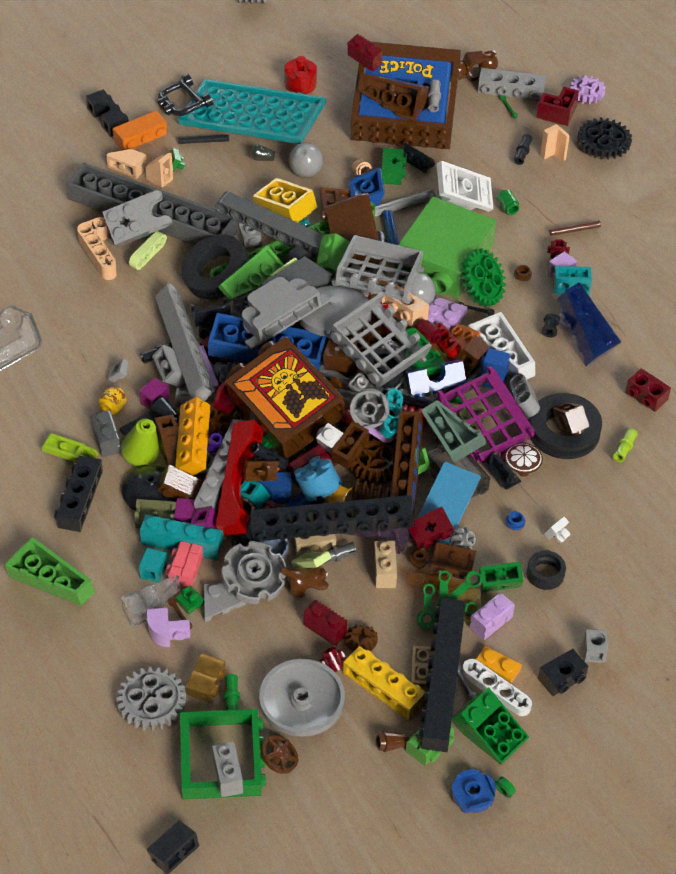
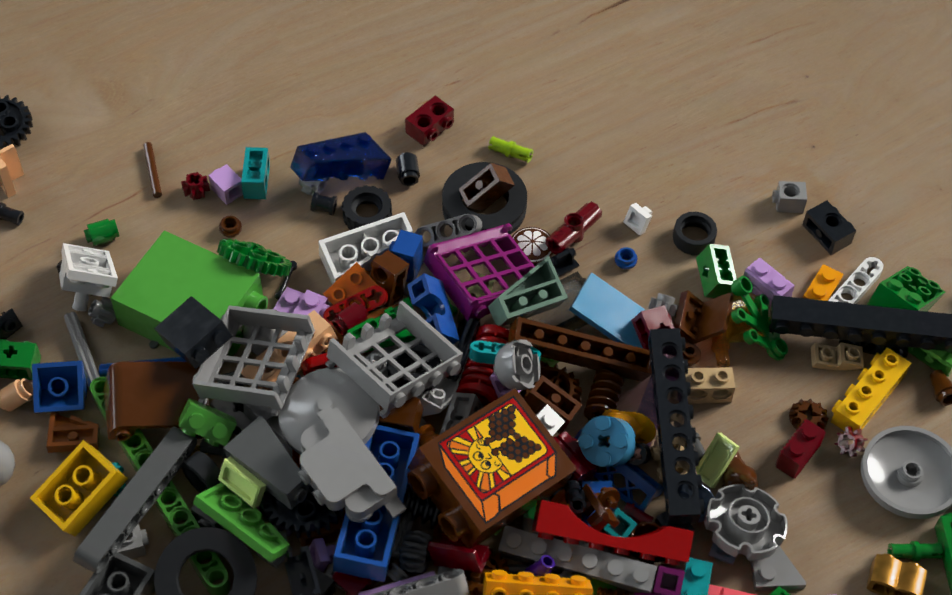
camera: 90 degrees left, 5 degrees up
(395, 231) = (193, 332): none -> black brick
(541, 482) = (573, 228): none -> dark red piece
(549, 341) = (364, 195): none -> black tyre
(593, 376) = (407, 168): none -> black brick

